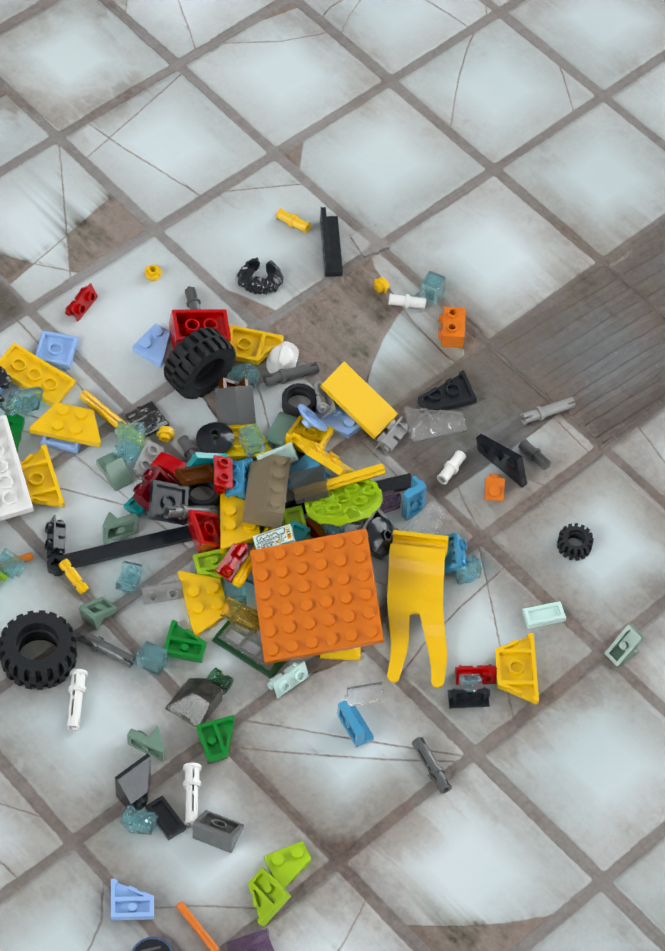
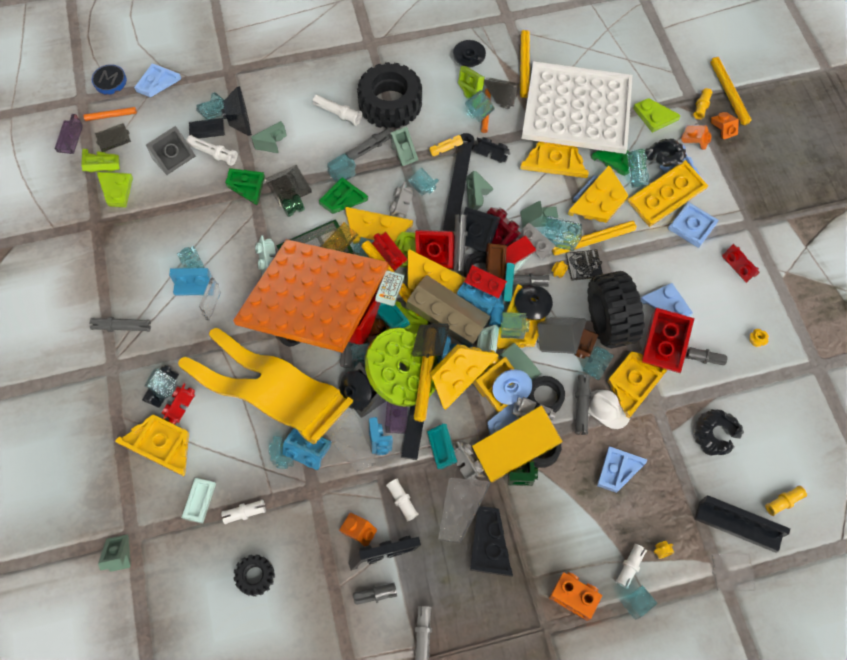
camera: 120 degrees right, 10 degrees up
(228, 904) = (112, 137): none -> clear smoke piece
(330, 742) = (190, 258): none -> clear light blue bracket
(334, 332) = (619, 469): none -> light blue wing
(381, 389) = (520, 478): none -> dark green bracket
(391, 455) = (442, 446): none -> teal tile
(532, 574) = (243, 511): none -> white pin

